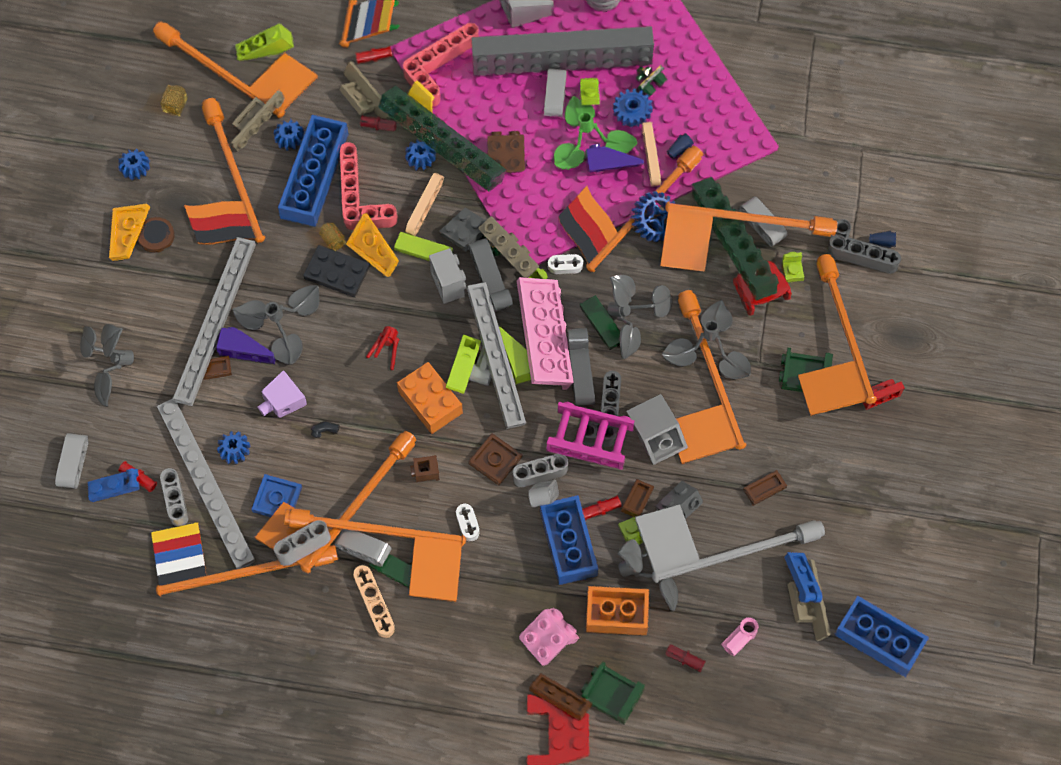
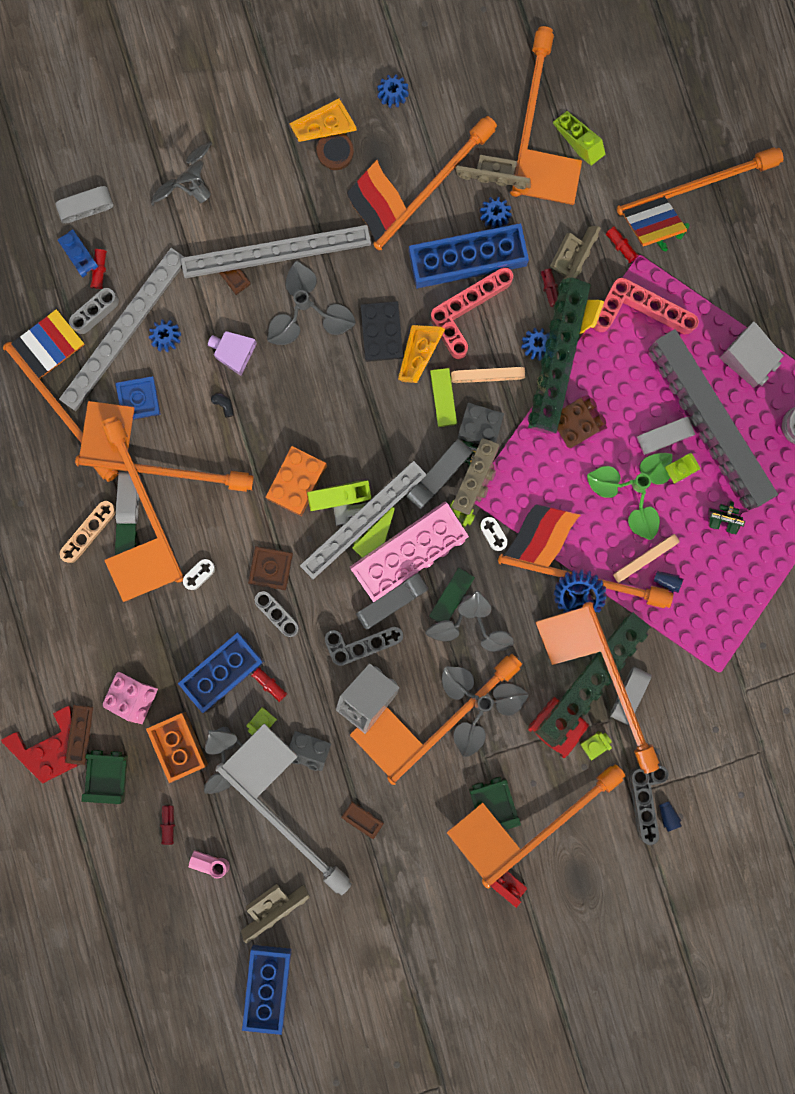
camera: 60 degrees right, 20 degrees up
(174, 100) = (477, 88): clear yellow brick -> none
(241, 346) = (263, 285): dark purple slope -> none
(293, 545) = (91, 438): light grey beam -> none
(332, 236) = (412, 309): clear yellow brick -> none
(387, 337) = (337, 411): red plant -> none
(425, 463) = (228, 521): reddish brown brick -> none
(447, 276) = (421, 434): light grey brick -> none
(543, 493) = (248, 630): light grey beam -> none
(595, 453) = (305, 639): dark pink fence -> none
(605, 158) = (617, 520): dark purple slope -> none
(629, 116) = (696, 512): blue gear -> none
(637, 498) = (293, 713): reddish brown tile -> none
(803, 577) = (287, 896): blue plate -> none

